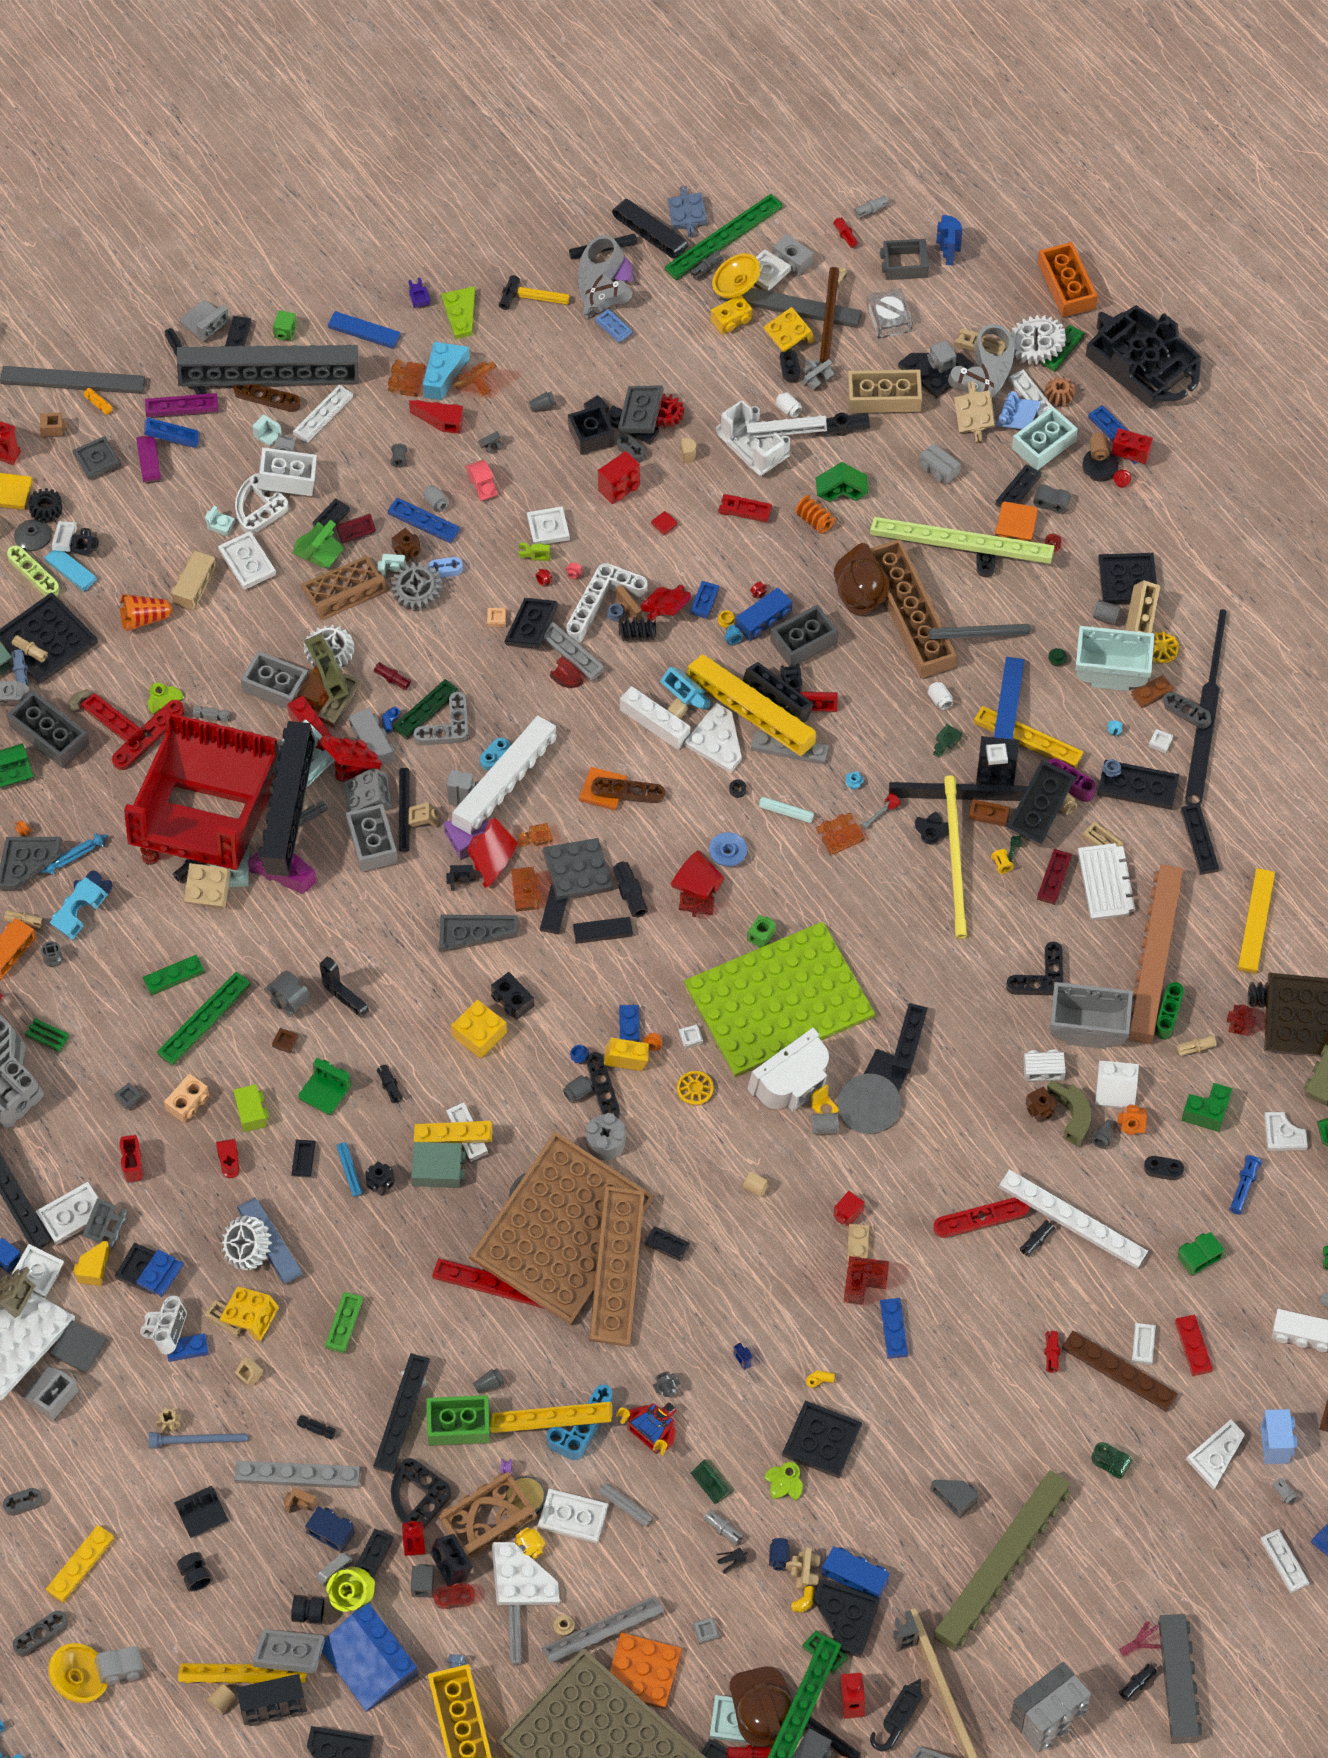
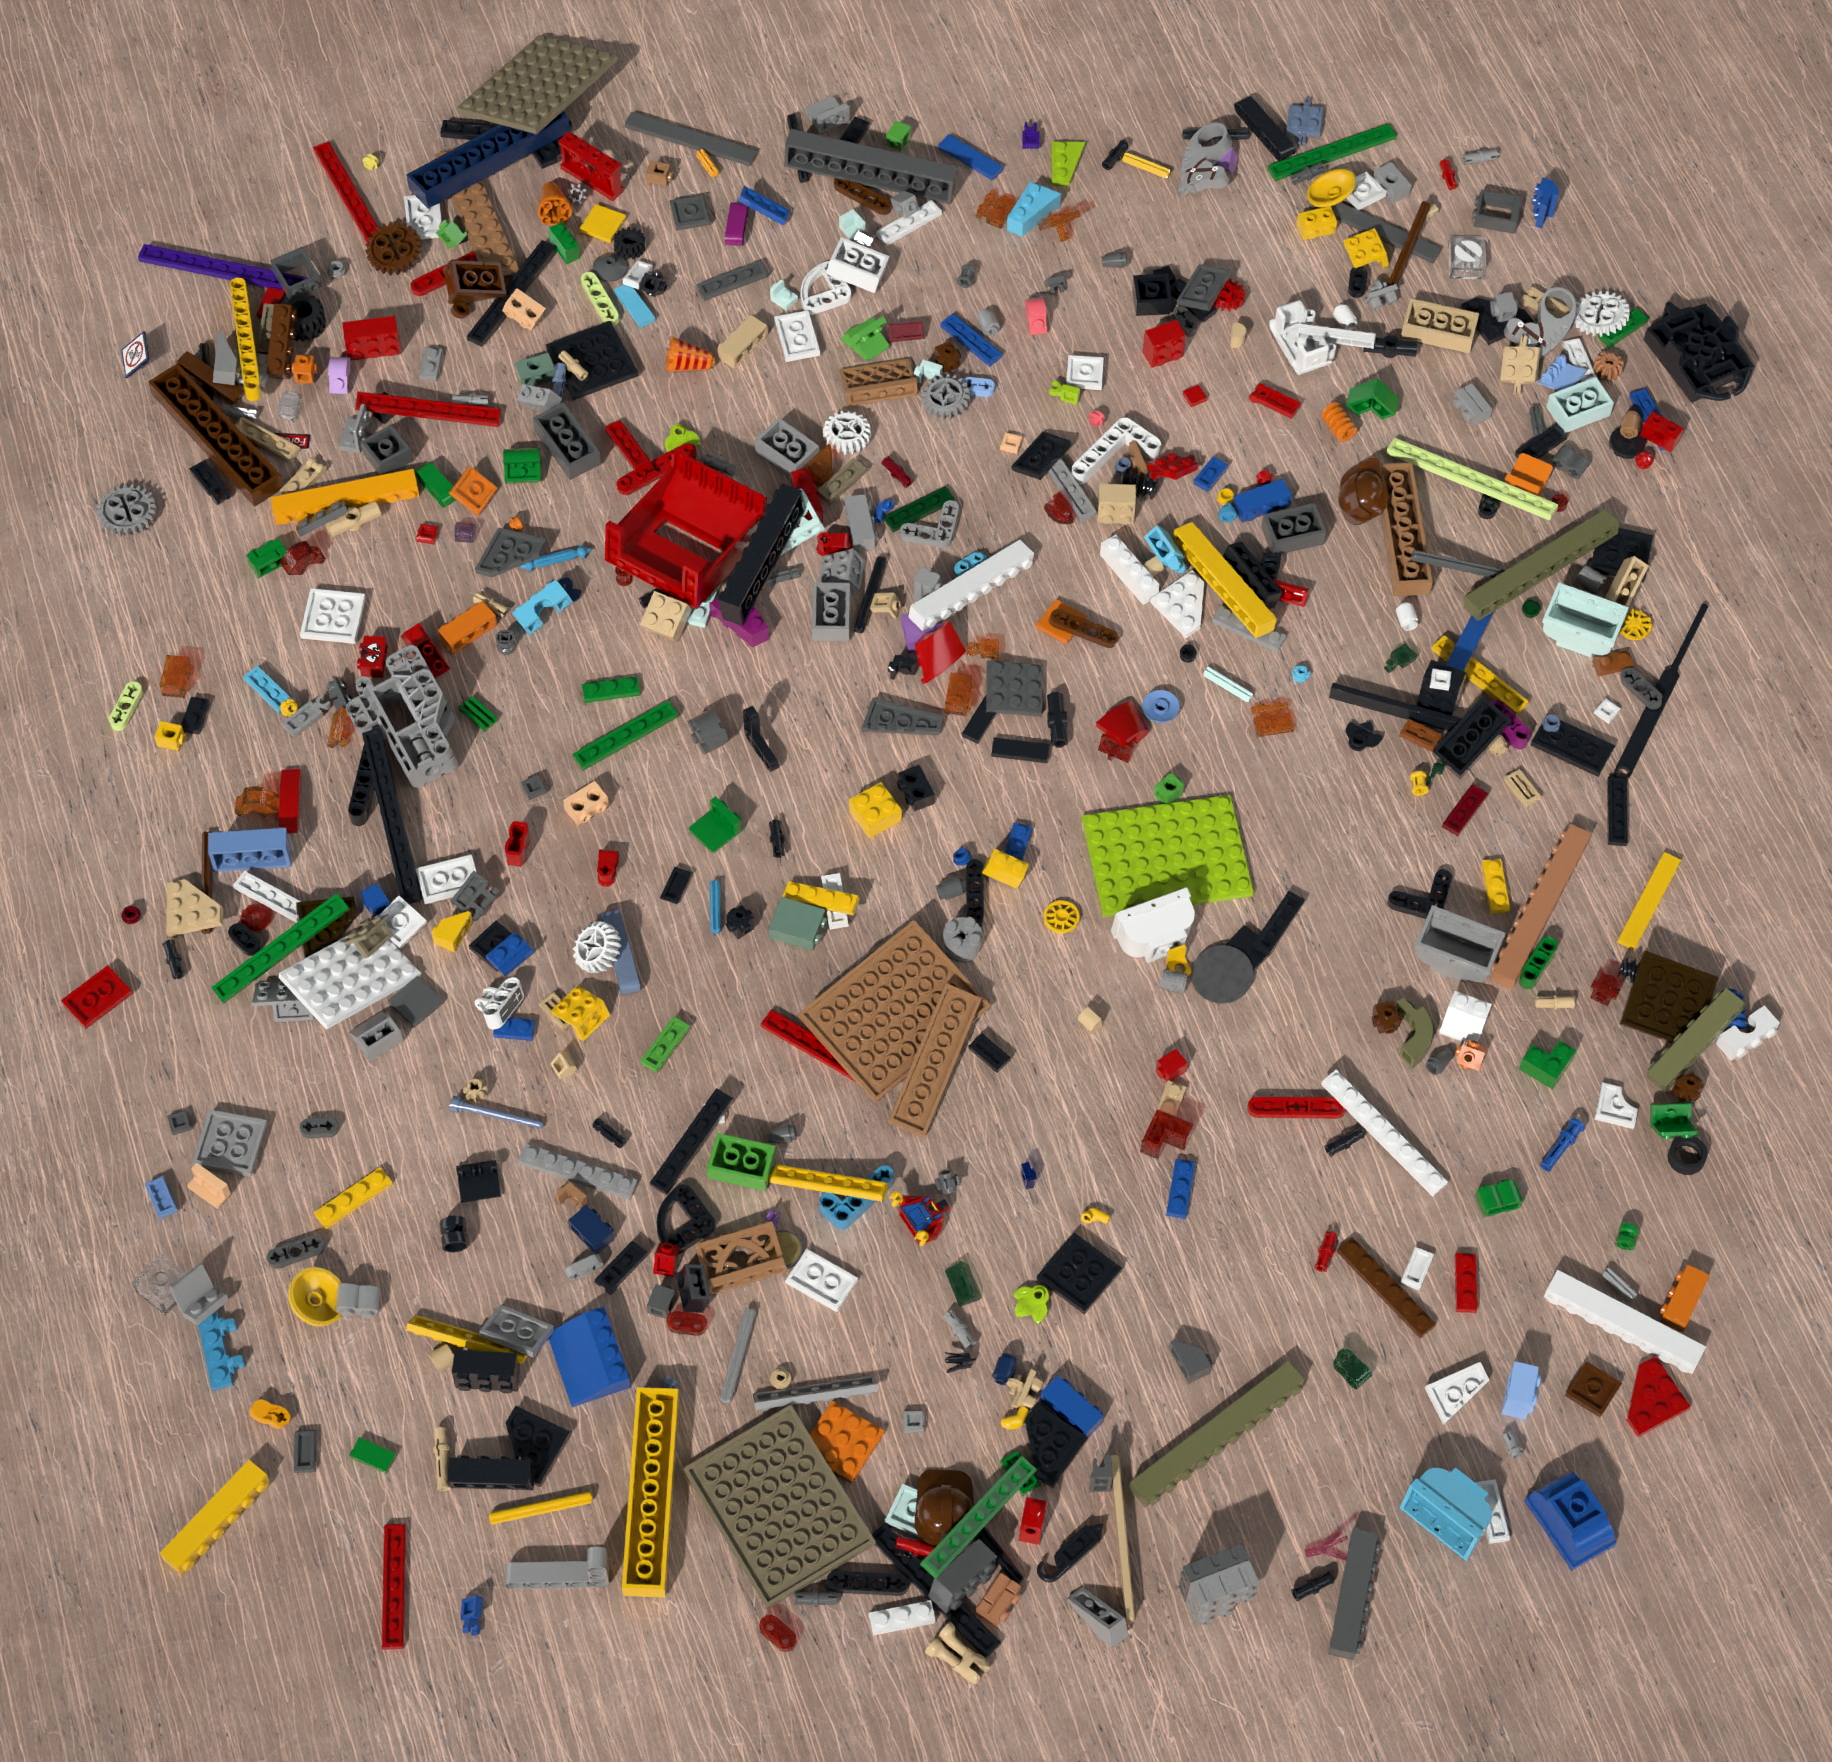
camera: 15 degrees right, 0 degrees up
(77, 697) = (602, 420): dark tan arm -> none
(162, 518) = (732, 280): none -> dark grey plate
(181, 405) = (781, 184): magenta plate -> none
(250, 1108) = (641, 827): lime brick -> none
(285, 1040) = (693, 774): reddish brown plate -> none
(307, 1609) = (543, 1296): black wheel -> none
(314, 396) = (905, 204): none -> light grey brick
(328, 667) = (840, 451): olive arch -> none
(335, 511) = (890, 312): black plate -> none
(339, 1591) = (591, 1289): neon yellow brick -> none
(350, 752) = (833, 528): red plate -> none
(441, 416) = (1016, 250): red slope -> none
(520, 1578) = (754, 1324): white plate -> none
(530, 1542) = (772, 1293): yellow head -> none
(543, 577) = (1066, 417): red plate -> none
(613, 326) = (1202, 207): medium blue plate -> none
(622, 654) = (1116, 503): none -> tan brick
(625, 1504) = (874, 1283): light grey axle -> none
(654, 1041) = (1035, 863): orange plate -> none
(690, 1036) = (1072, 868): white tile -> none
(891, 802) = (1329, 702): hinge -> none
(960, 922) = (1361, 828): light yellow piece -> none
(1006, 465) = (1536, 420): none -> dark grey axle
(1044, 1066) = (1400, 983): white brick -> none
(1055, 611) = (1541, 564): none -> olive brick
(1067, 279) = (1646, 265): orange brick -> none
(1104, 882) = (1511, 825): white hinge -> none
(1105, 945) = (1495, 886): none -> yellow plate
(1114, 727) = (1566, 687): medium azure hinge -> none
(1163, 1169) = (1487, 1108): black plate -> none
(1246, 1567) = (1452, 1506): none -> medium azure container

